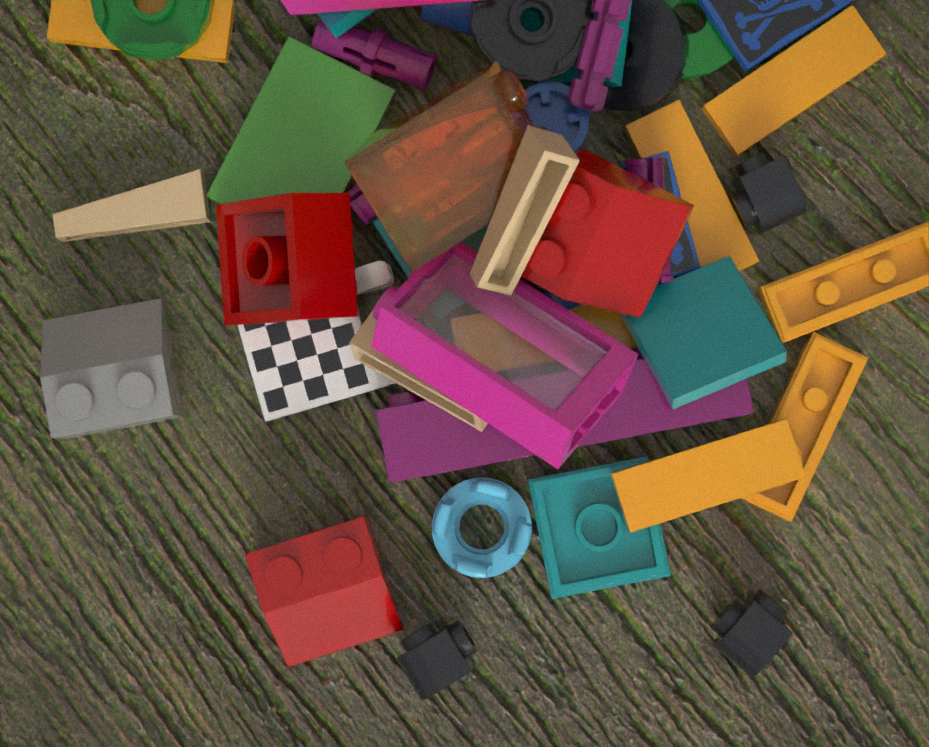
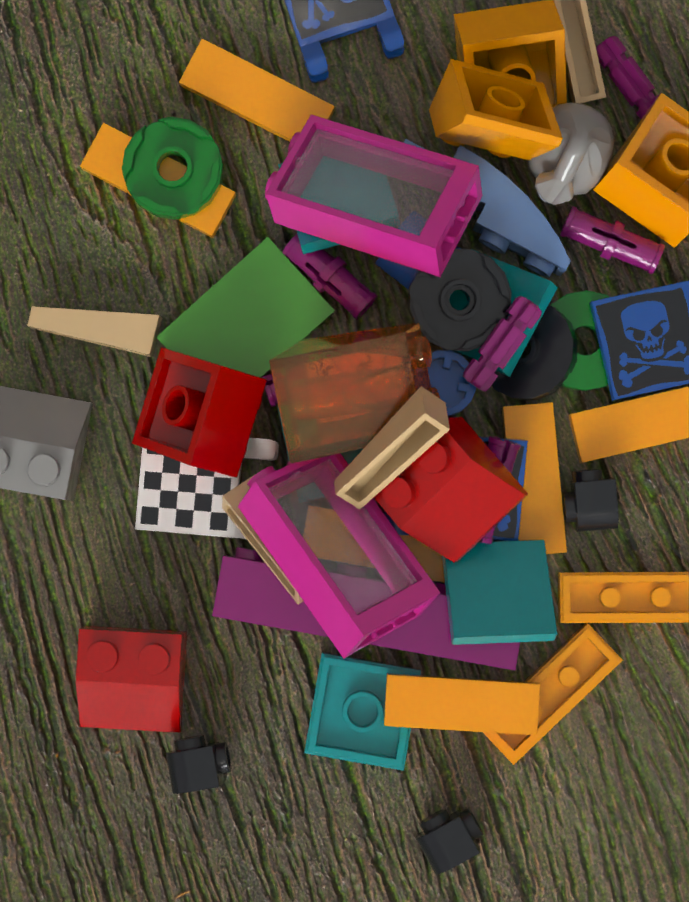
camera: 20 degrees right, 0 degrees up
(489, 561) = (254, 700): medium azure piece -> none

